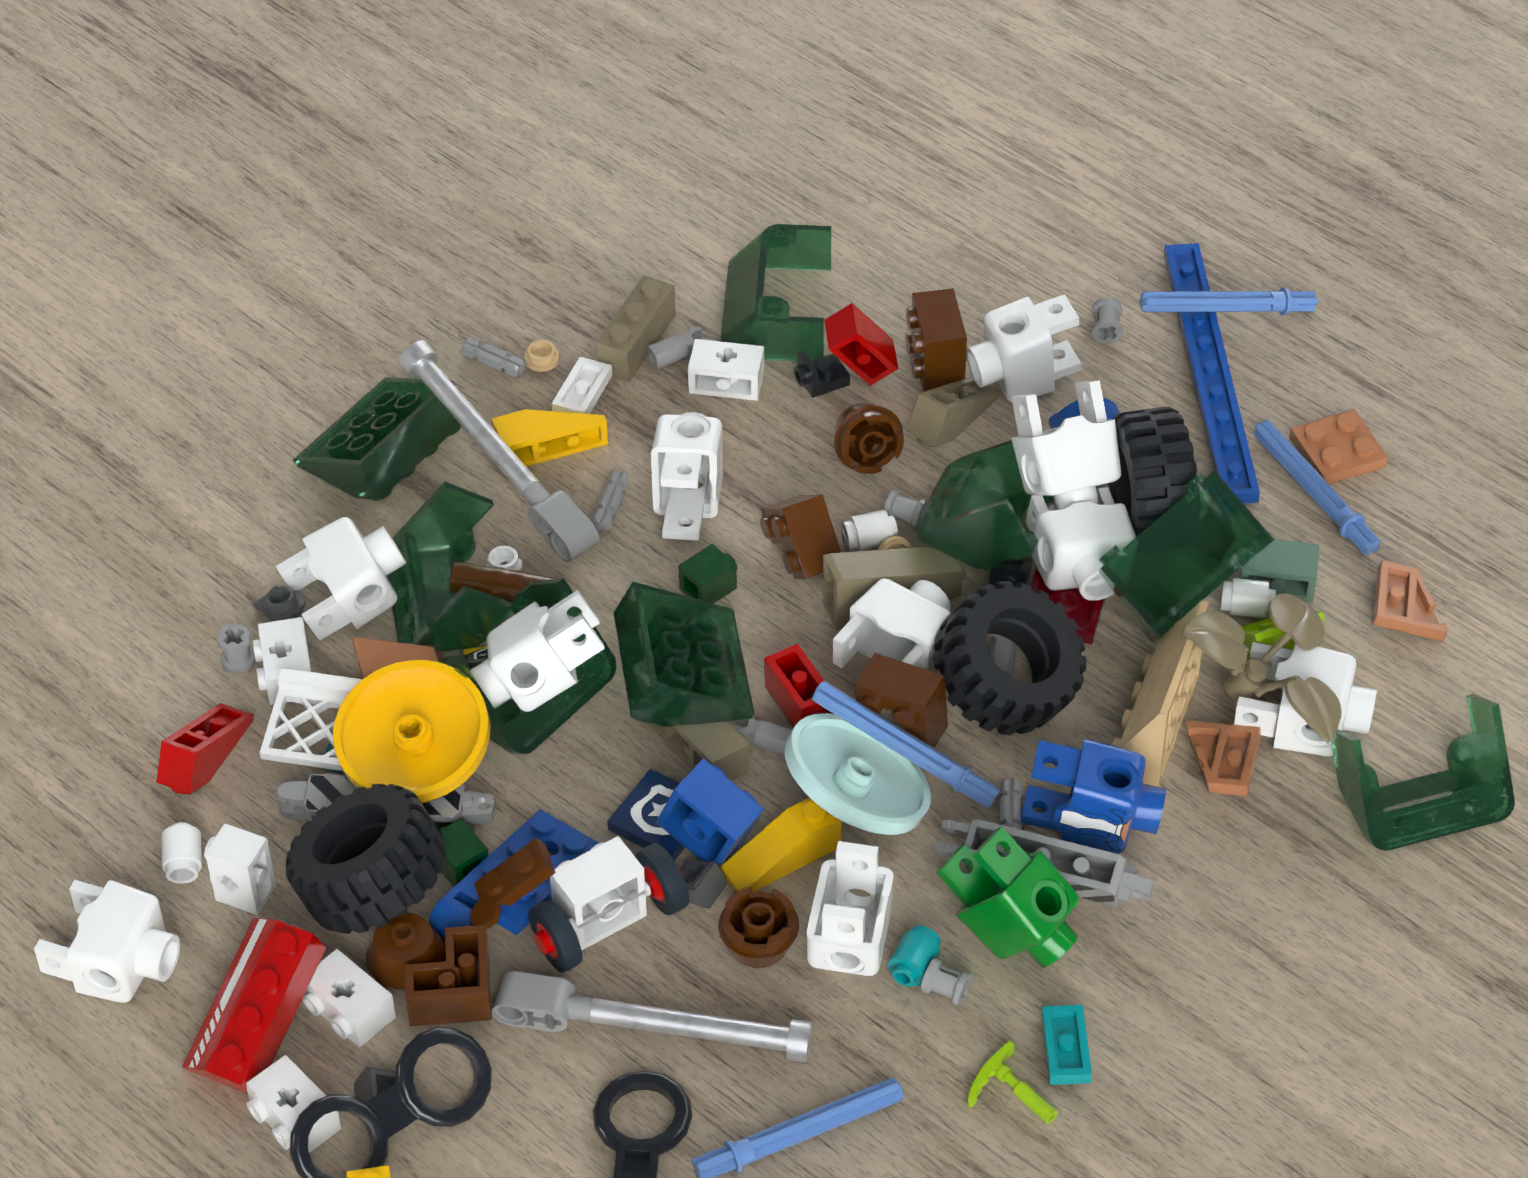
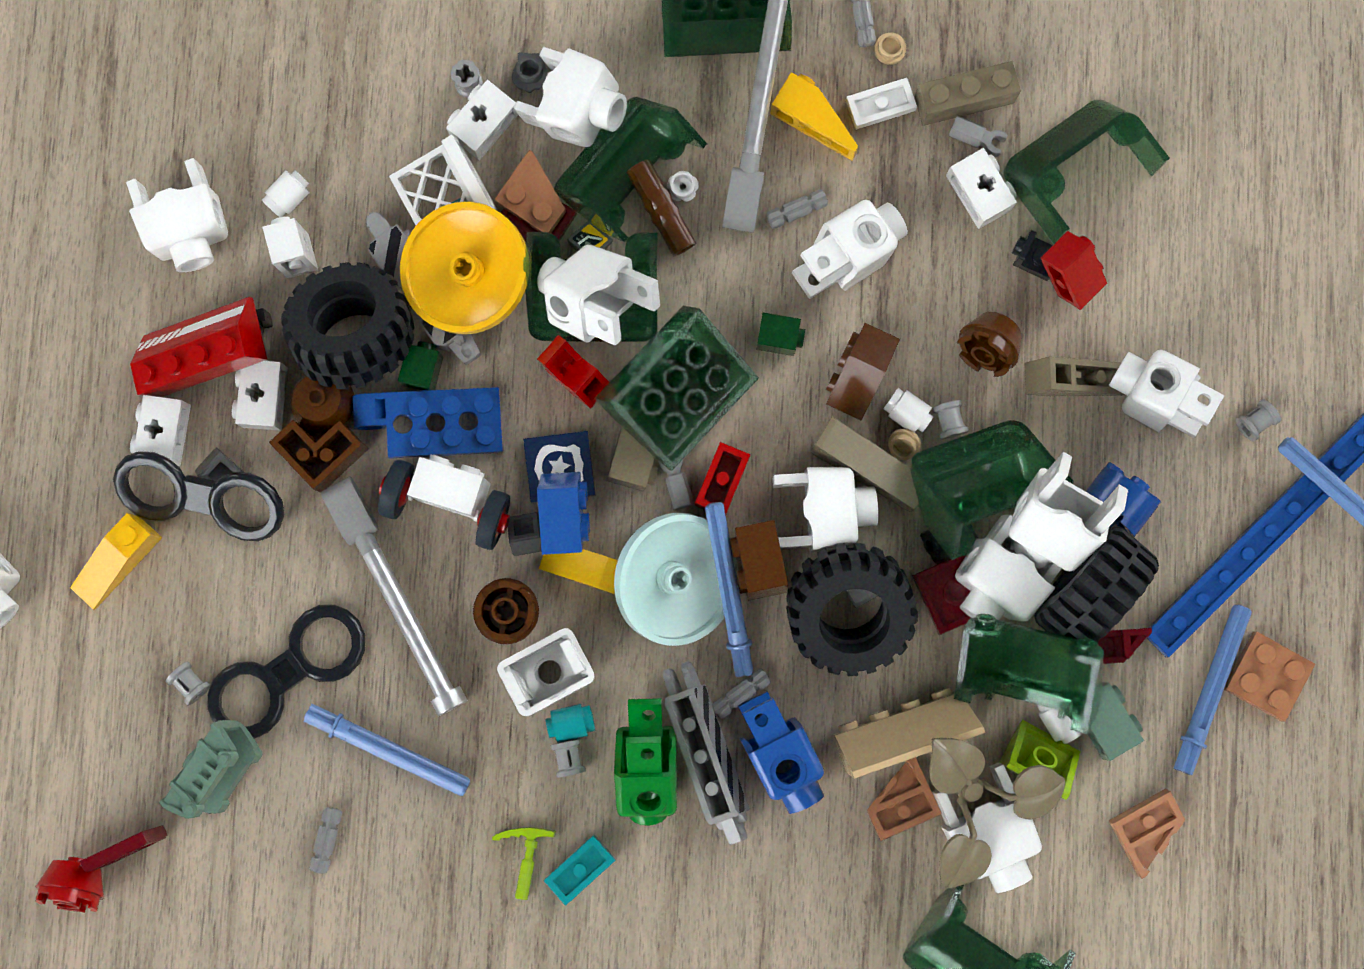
camera: 55 degrees right, 35 degrees up
(199, 749) = (374, 131): red slope -> none
(511, 882) = (400, 434): reddish brown hinge -> none
(588, 742) = (573, 371): none -> red brick
(936, 338) = (1126, 321): reddish brown brick -> none

